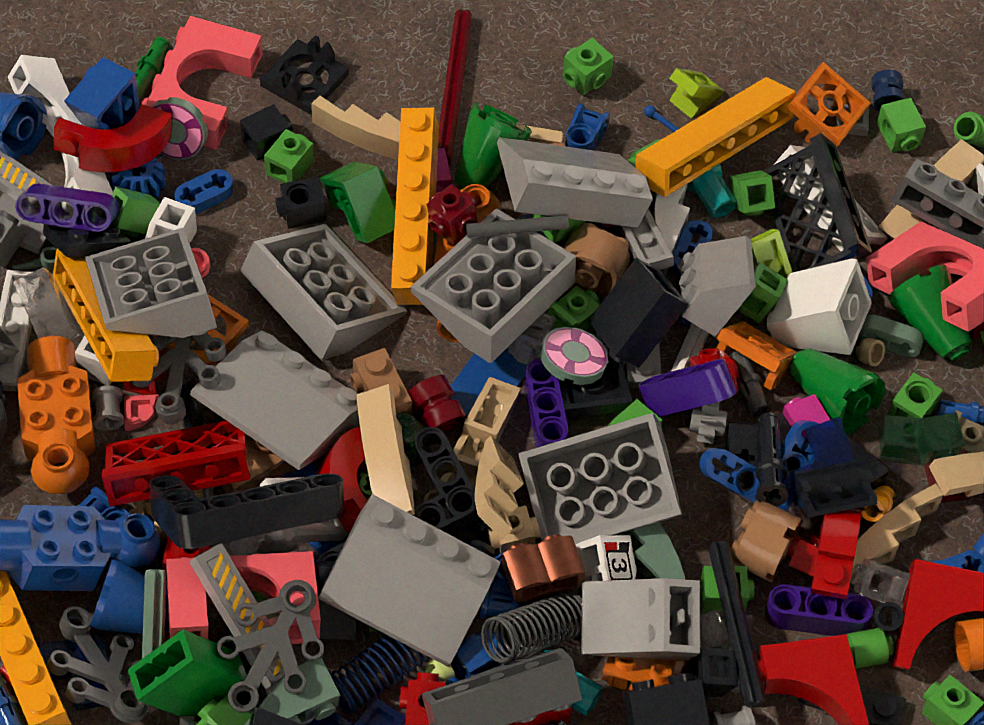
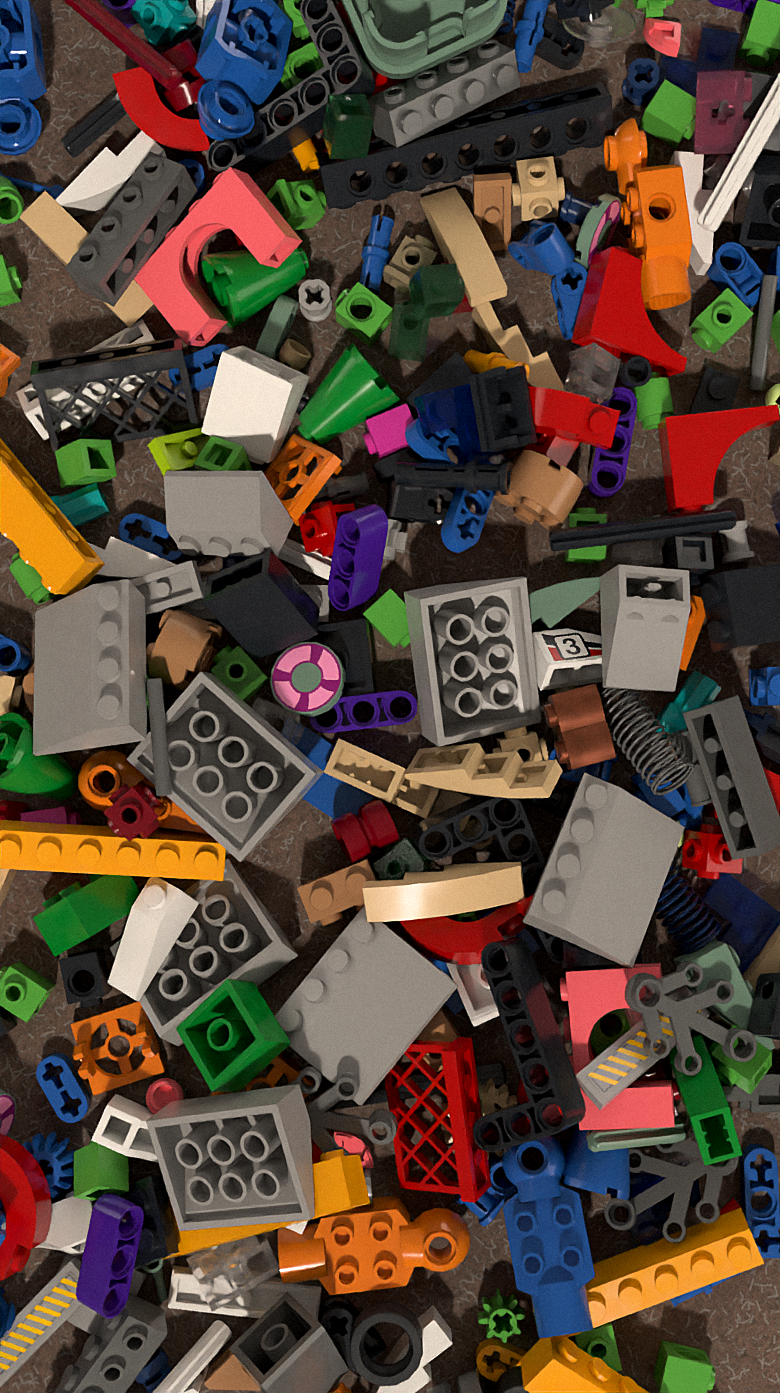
camera: 85 degrees left, 30 degrees up
(230, 207) = (99, 1079): none -> orange piece
(255, 294) = (232, 1036): none -> green brick
(345, 244) = (149, 935): none -> white slope
(923, 361) = (315, 288): none -> light grey bush

